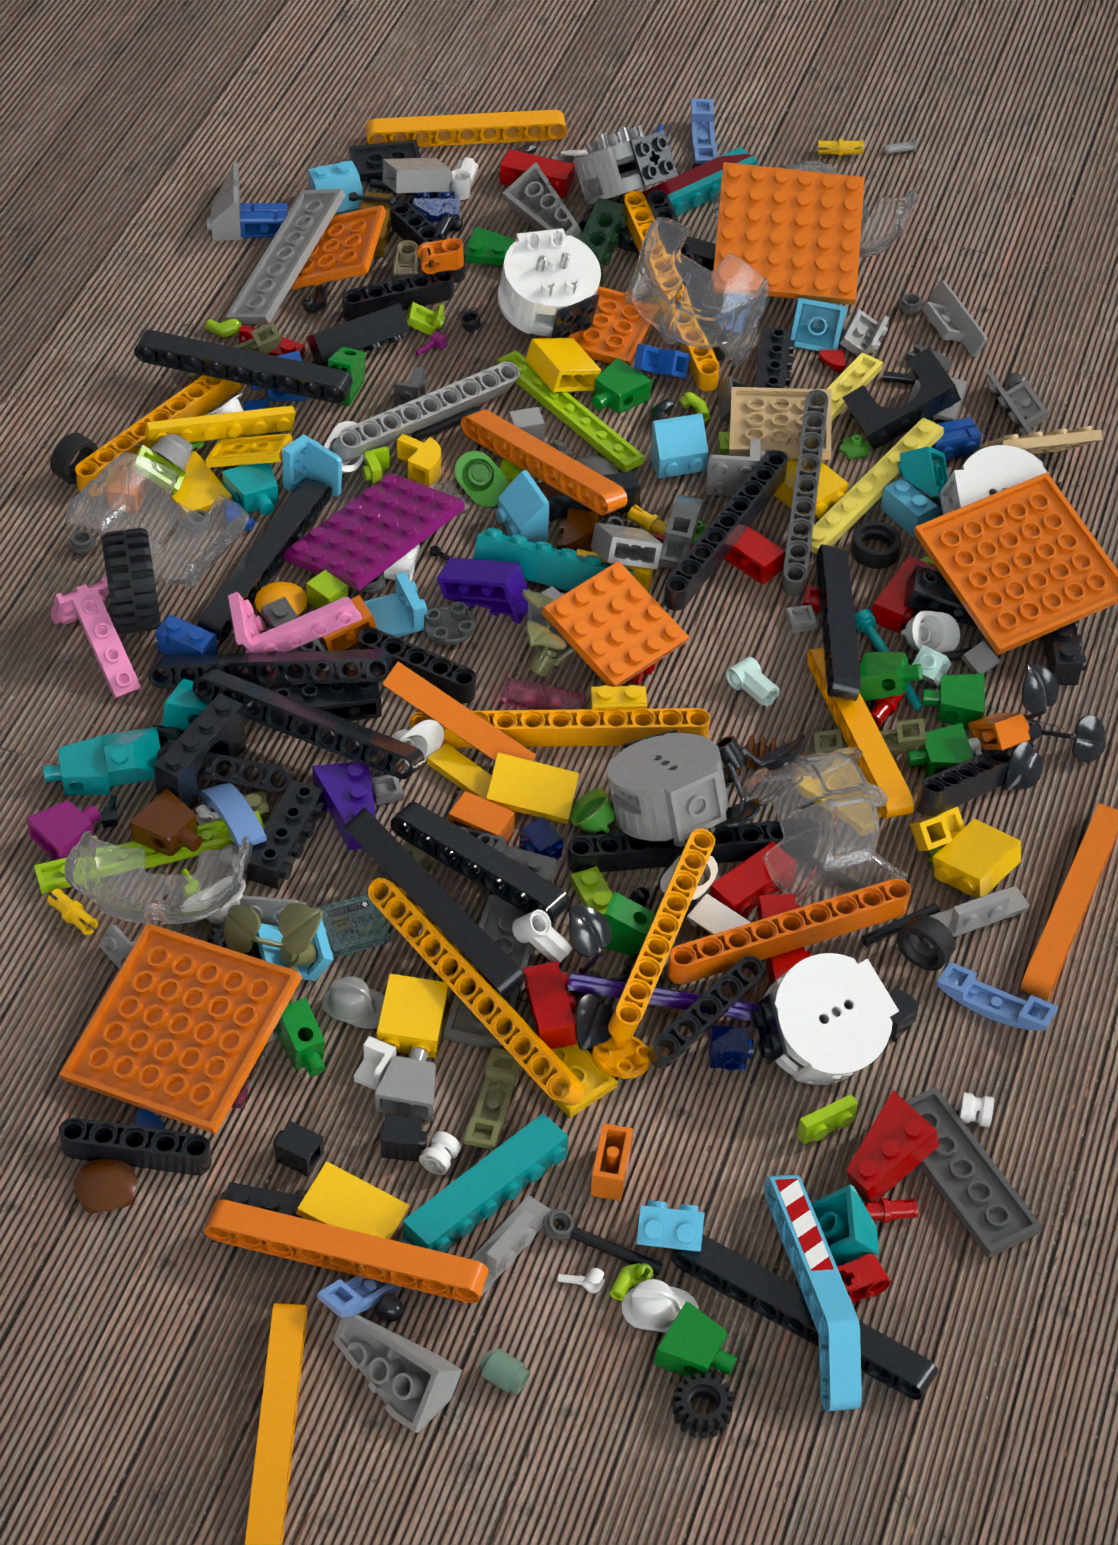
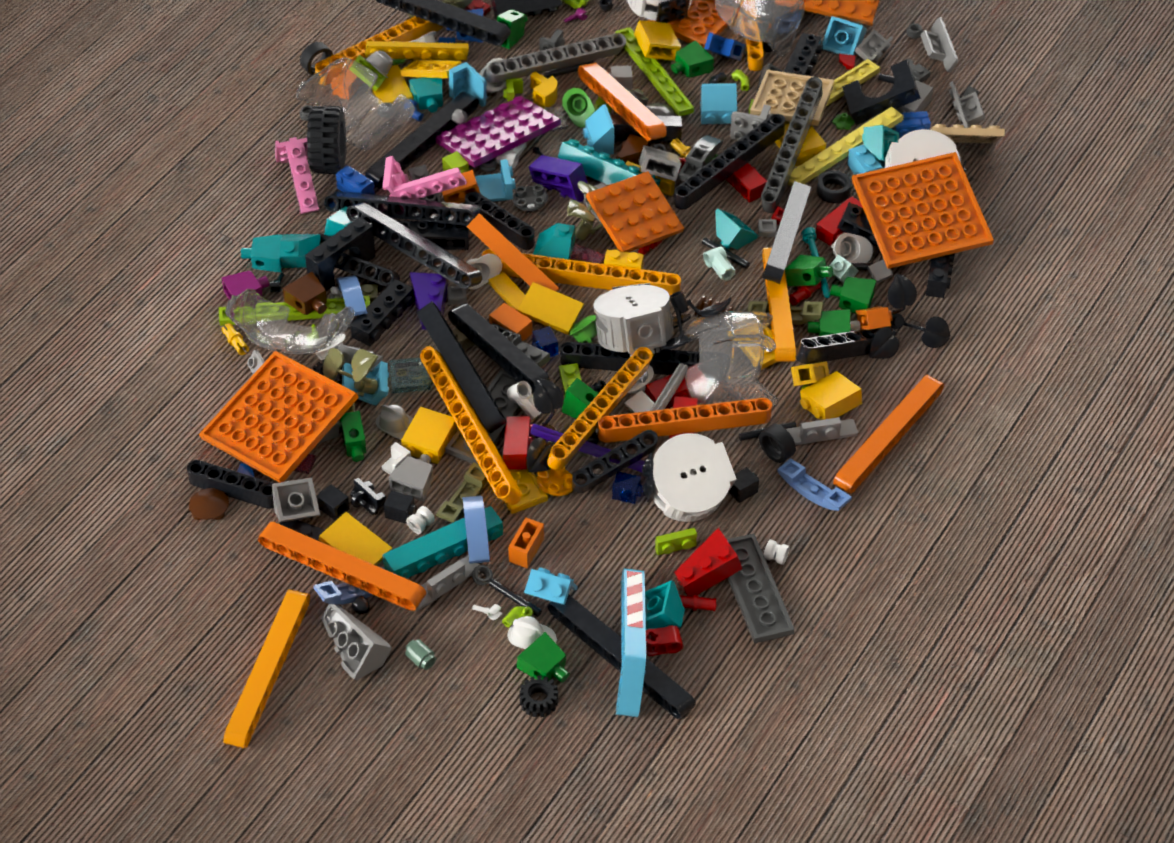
camera: 15 degrees right, 0 degrees up
(242, 1157) = (295, 500): none -> light grey slope
(294, 594) = (432, 164): light orange dish -> none
(312, 516) = (459, 116): none -> light grey hinge
(346, 1131) = (364, 496): none -> black hips
(510, 685) = (556, 241): none -> teal slope
(532, 1153) = (476, 529): none -> medium blue slope
(749, 885) = (670, 388): none -> light grey axle
(757, 631) = (732, 230): none -> teal slope
(765, 668) = (733, 257): none -> black bar

